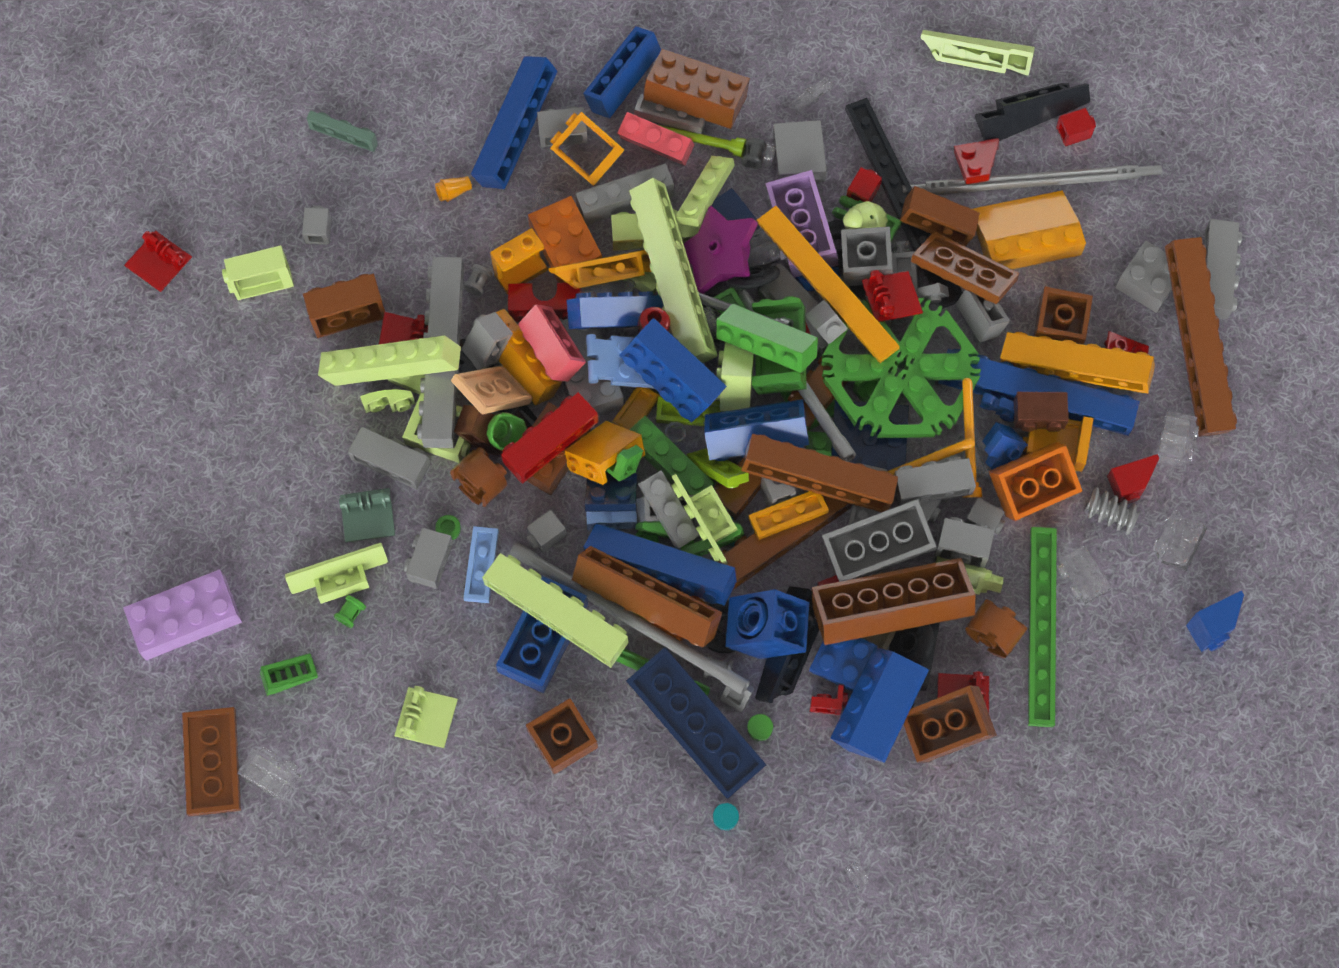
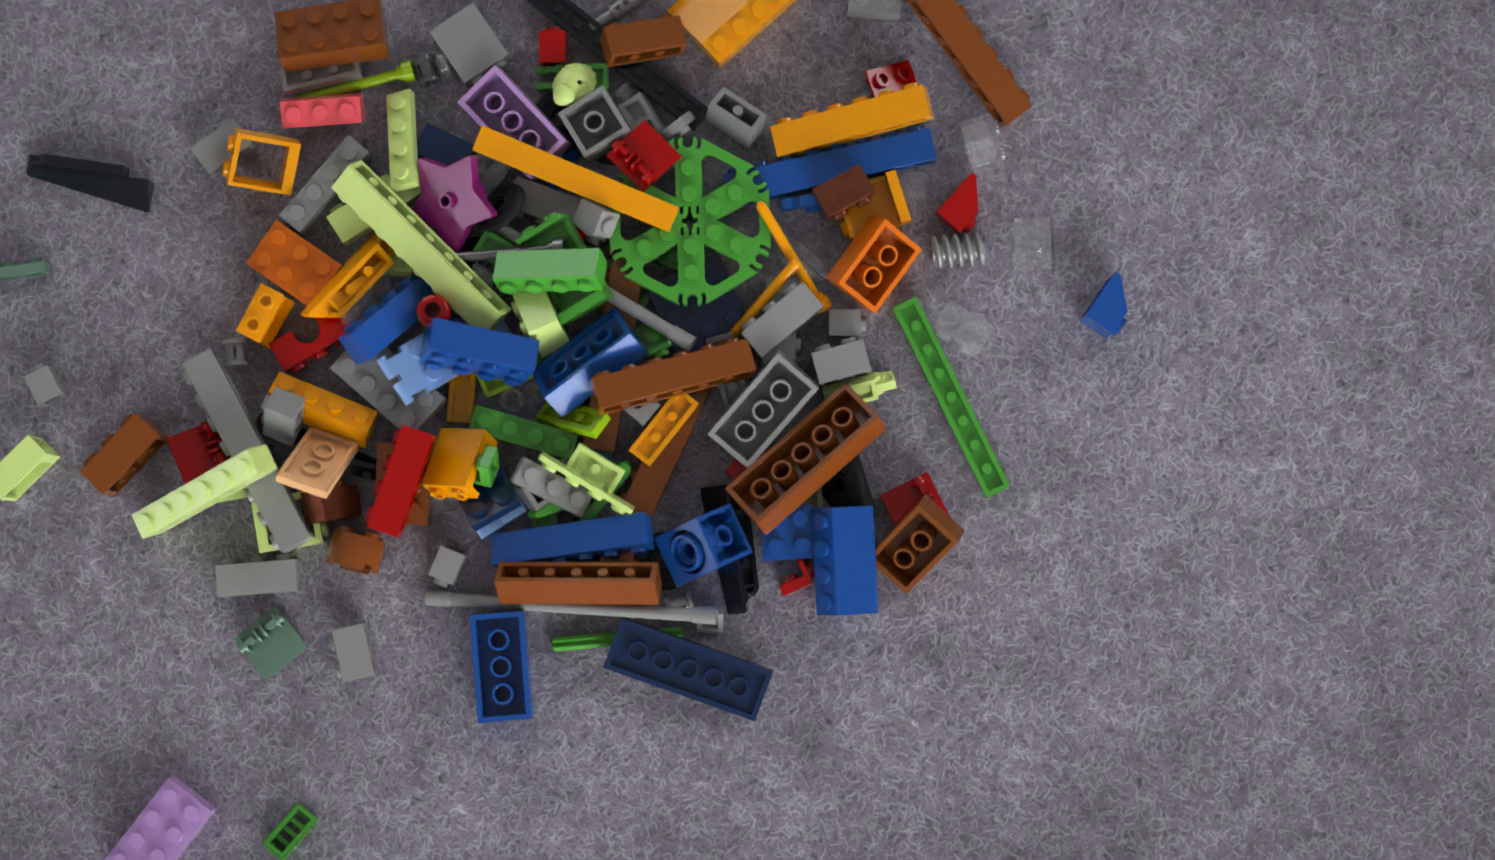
camera: 30 degrees left, 15 degrees up
(338, 575) = (281, 716): yellowish green bracket -> none
(349, 611) = (311, 744): bright green bush -> none
(397, 399) = (230, 518): yellowish green slope -> none
(426, 717) = (440, 800): yellowish green hinge -> none
(448, 525) = (353, 612): bright green tile -> none
(450, 98) = (93, 178): none -> black wedge
(453, 187) = (153, 271): light orange cone -> none
(481, 557) = (405, 630): light blue plate -> none
(505, 429) = (355, 496): bright green hair -> none
(514, 122) = (173, 169): blue brick -> none
(551, 343) = (347, 386): coral brick -> none
(555, 609) = (503, 644): yellowish green brick -> none
(562, 736) = (574, 750): dark orange brick -> none
(622, 72) = (249, 56): blue brick -> none
(725, 816) = (761, 736): teal tile -> none
(760, 727) = (747, 637): bright green tile -> none
(965, 267) = (696, 85): dark orange plate -> none
(995, 628) = (911, 427): dark orange brick -> none
(1002, 445) = (825, 243): blue brick -> none
(1063, 315) = (814, 81): dark orange brick -> none

